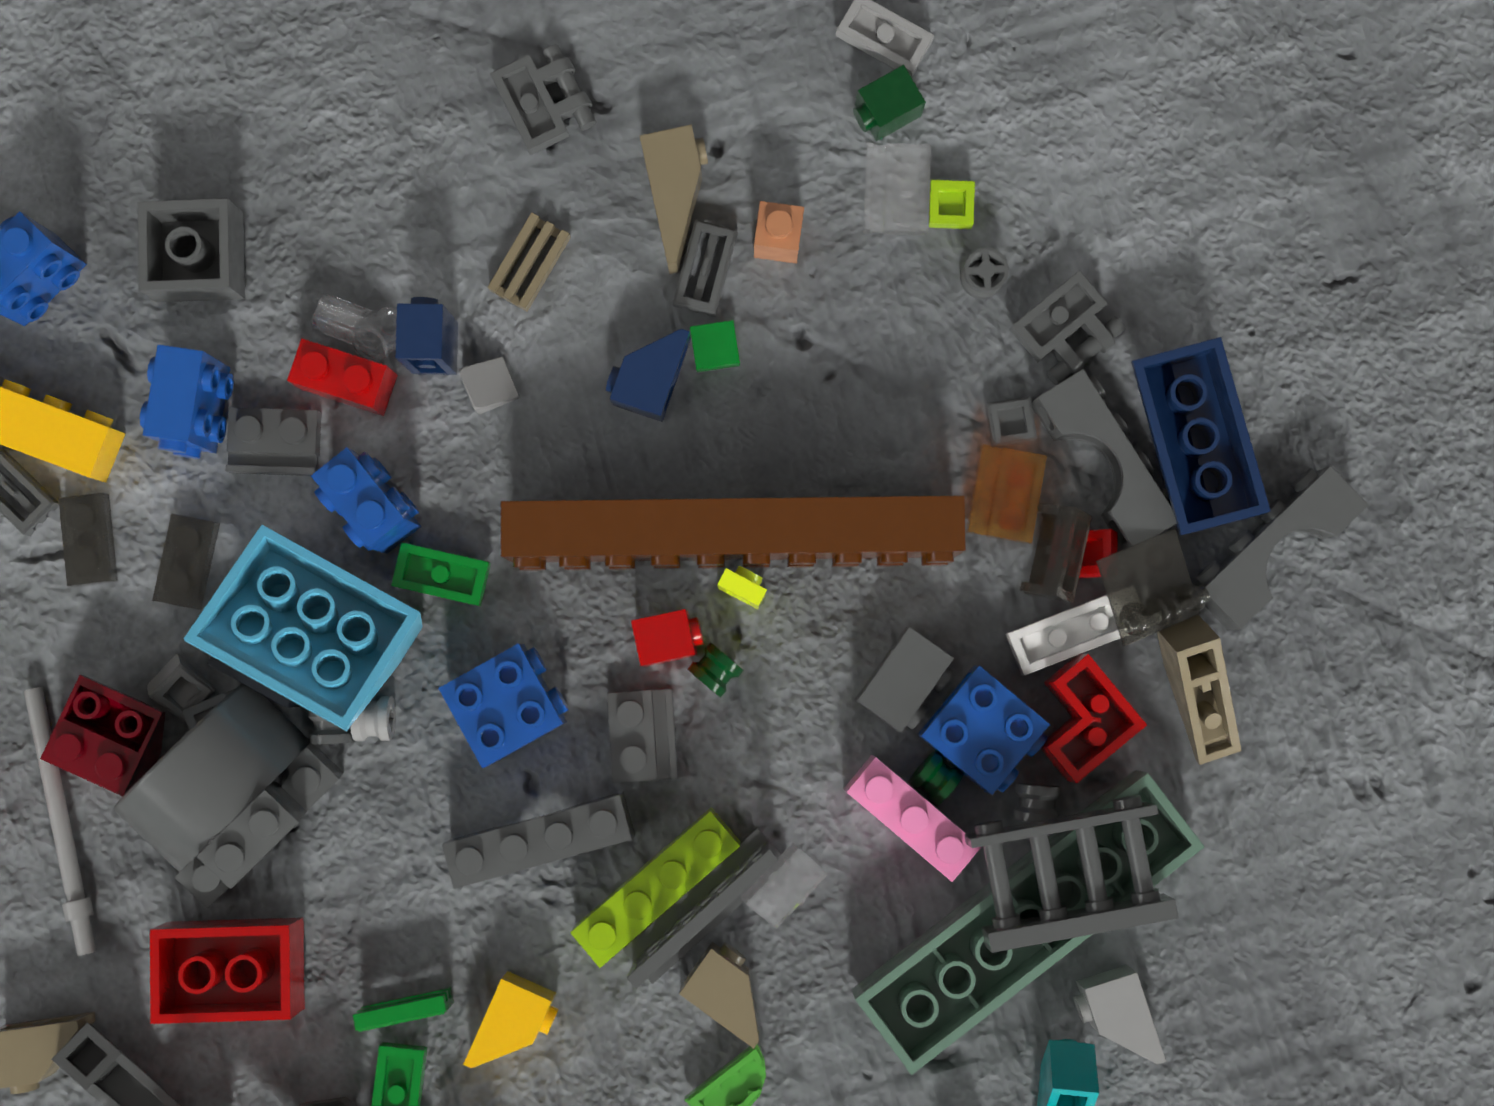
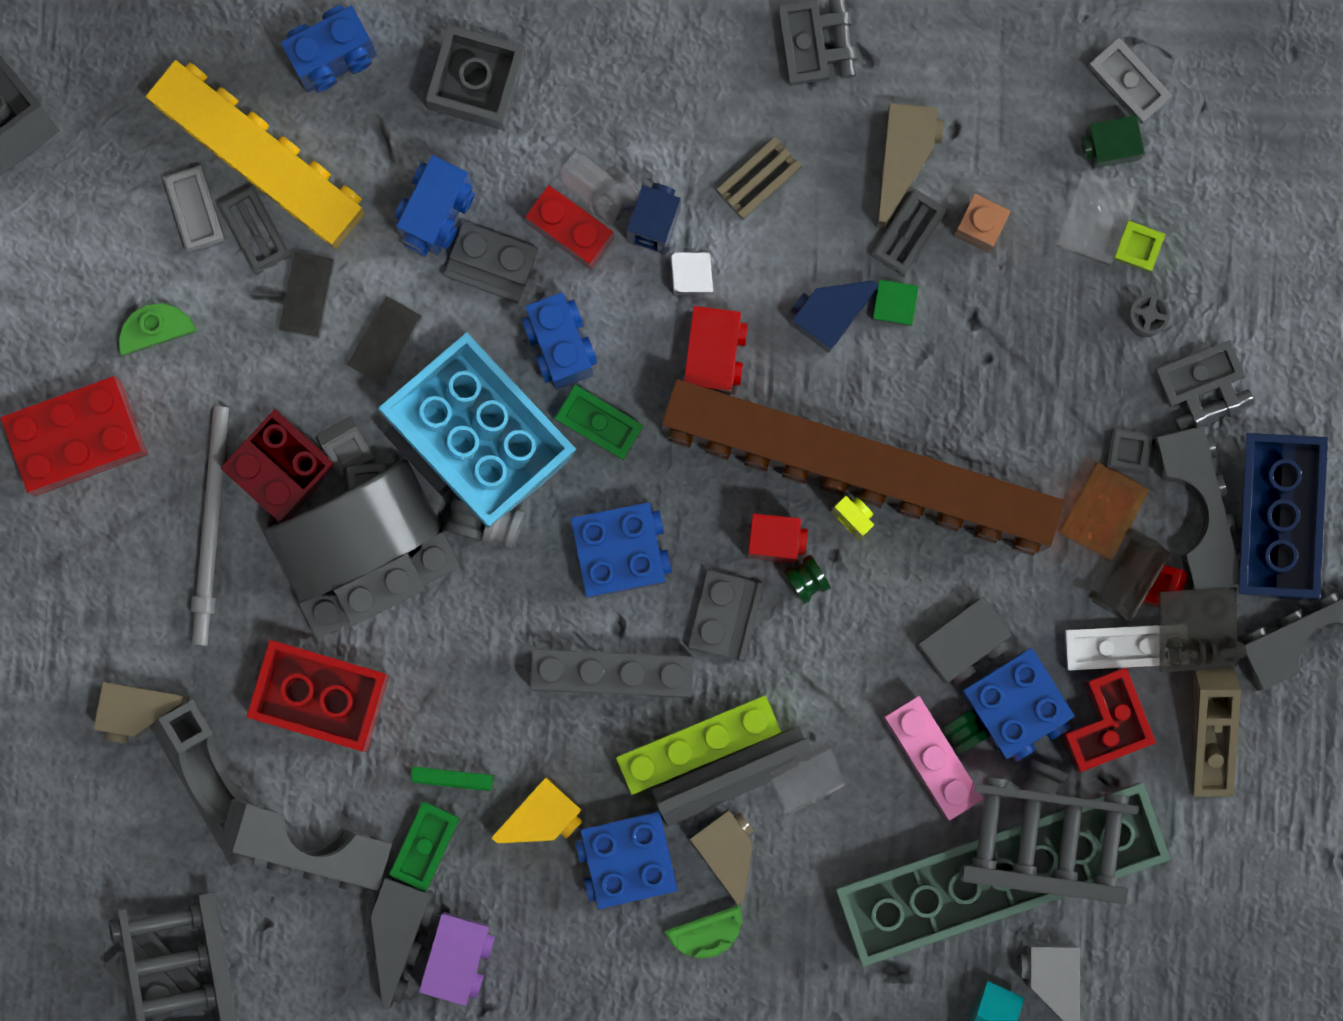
camera: 20 degrees right, 0 degrees up
(537, 456) = (714, 348): none -> red brick
(619, 1039) = (626, 860): none -> blue brick

